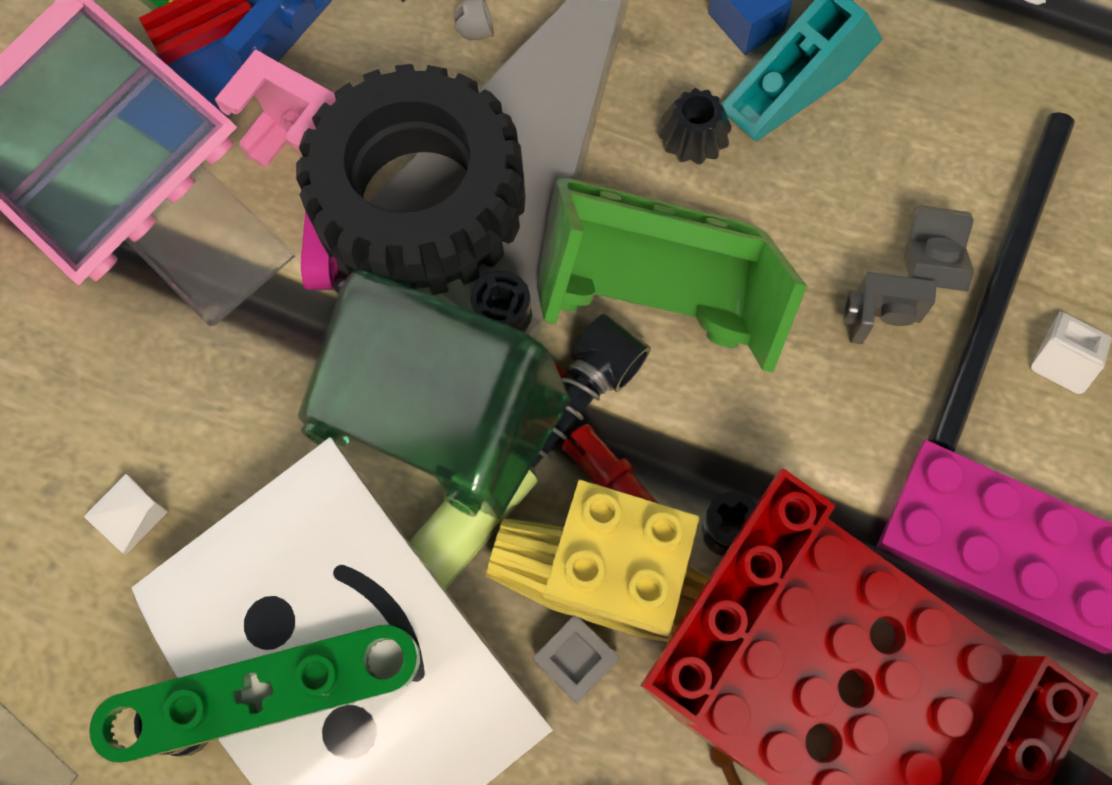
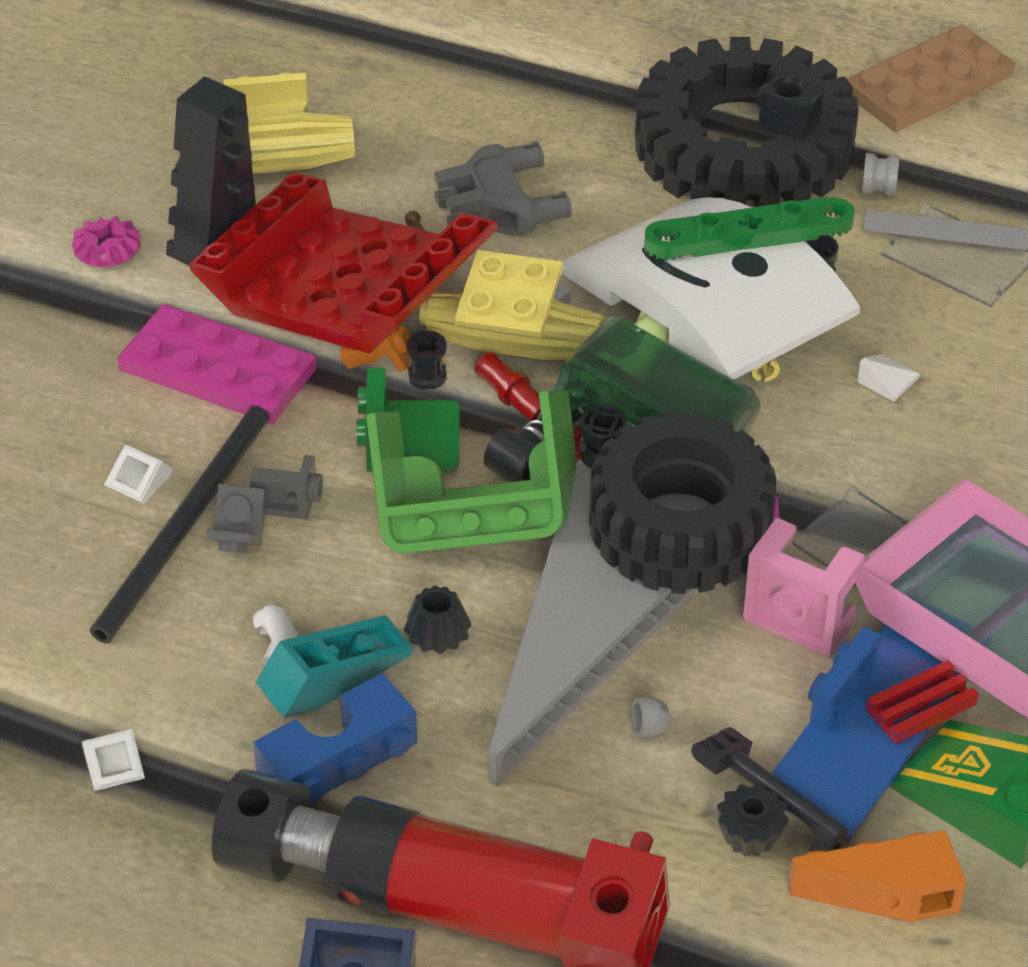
camera: 175 degrees right, 25 degrees down
(744, 412) = (427, 425): none -> green bracket
(865, 119) = (275, 624): none -> white arm

